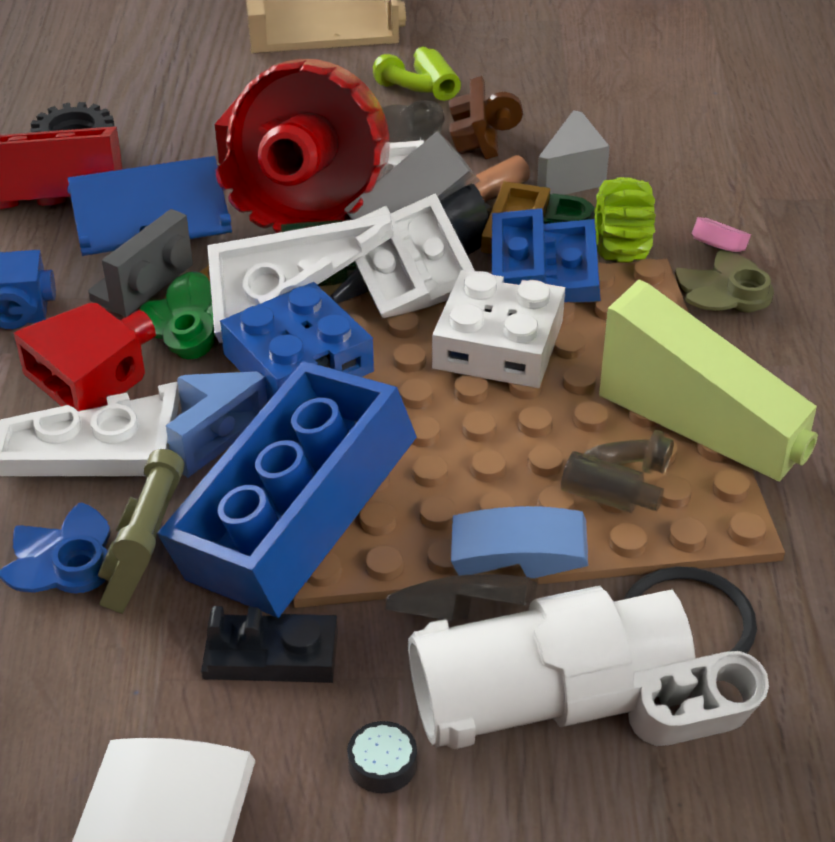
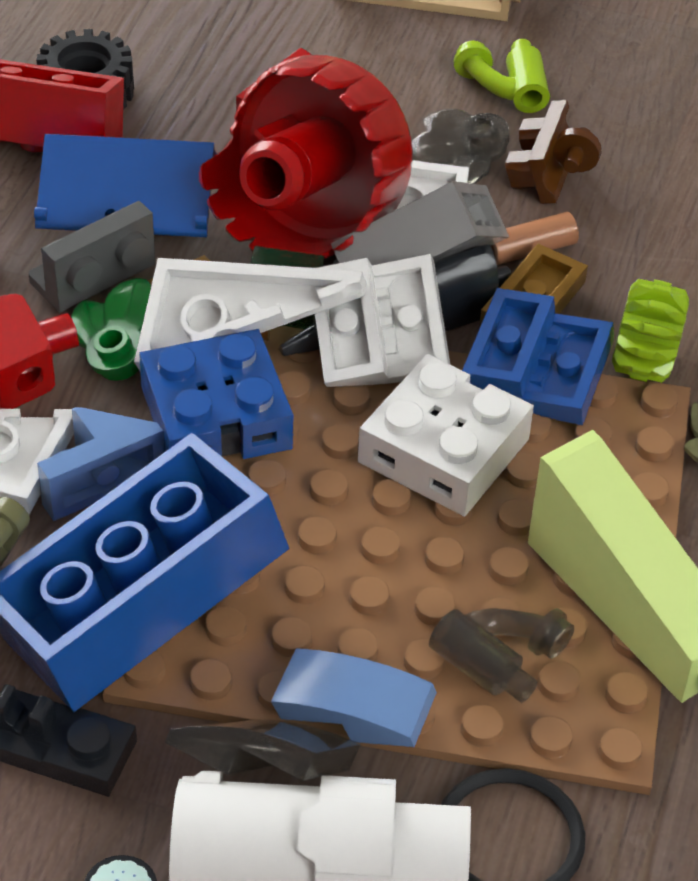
camera: 15 degrees right, 5 degrees up
(568, 208) = (598, 299): dark green tile -> none
(574, 158) = (632, 231): light grey slope -> none

